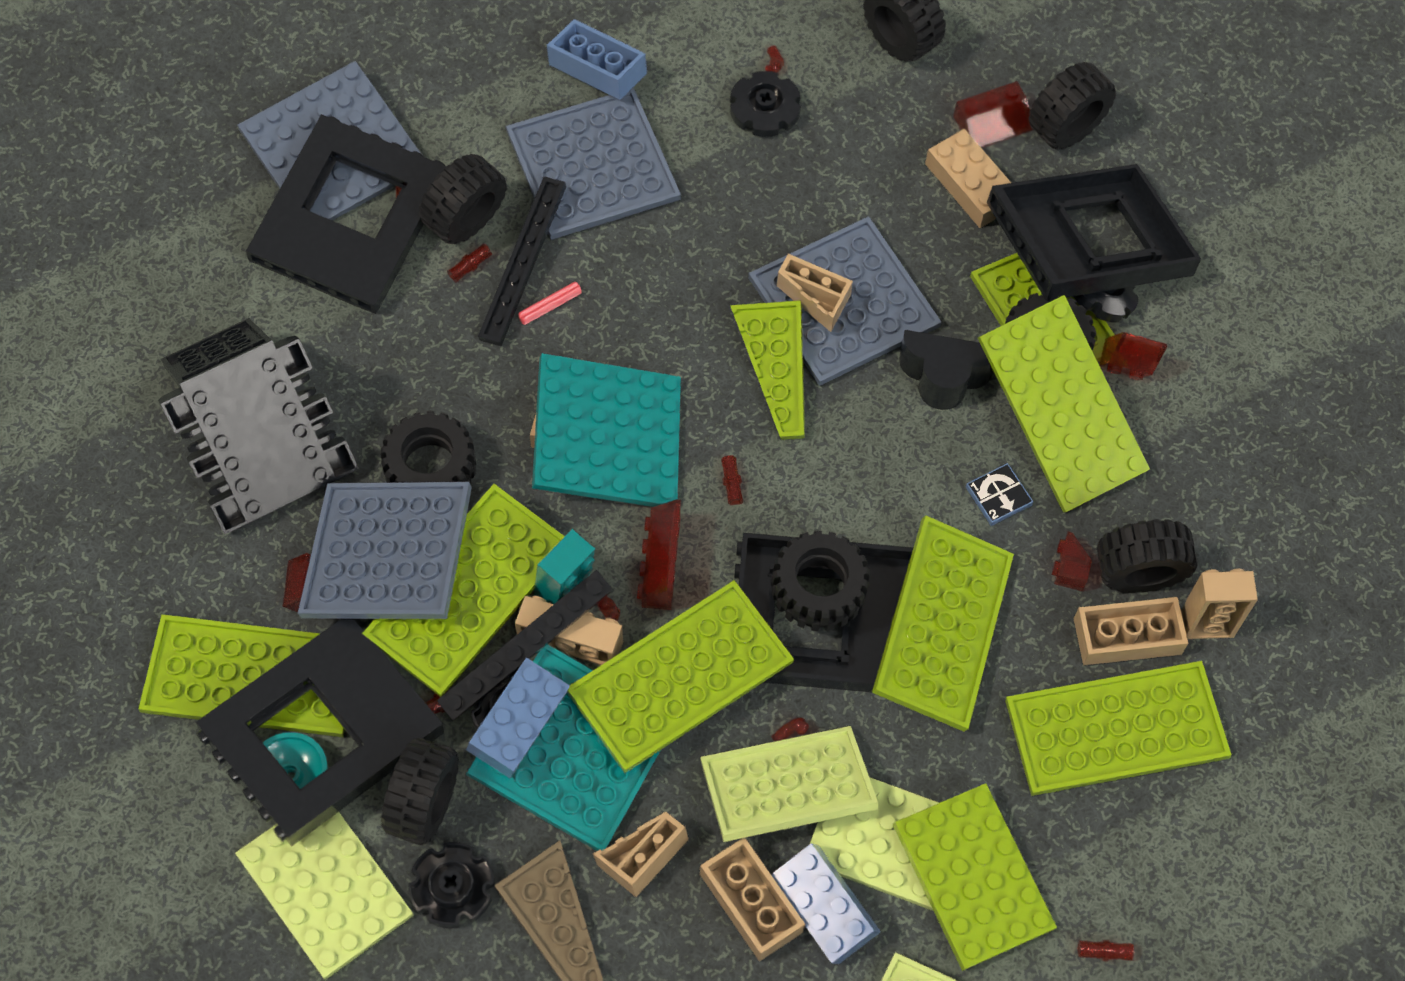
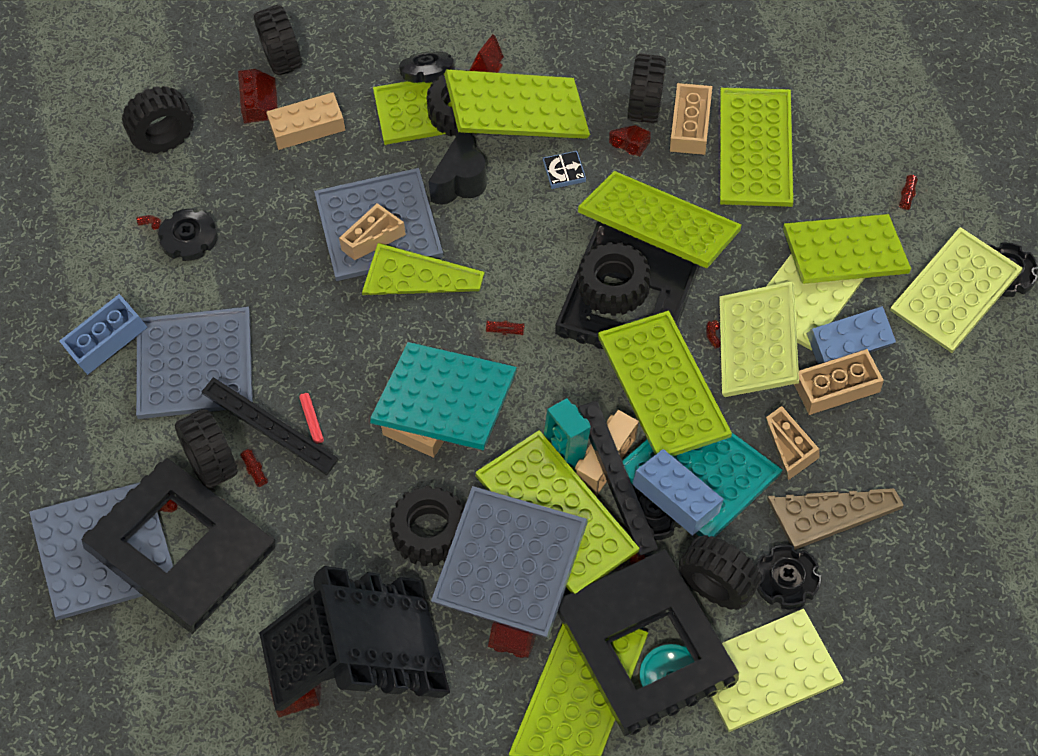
camera: 70 degrees left, 5 degrees down
(660, 556) = (557, 379): clear red slope -> none
(1057, 255) = (389, 78): black panel -> none
(1219, 604) = (693, 53): tan brick -> none

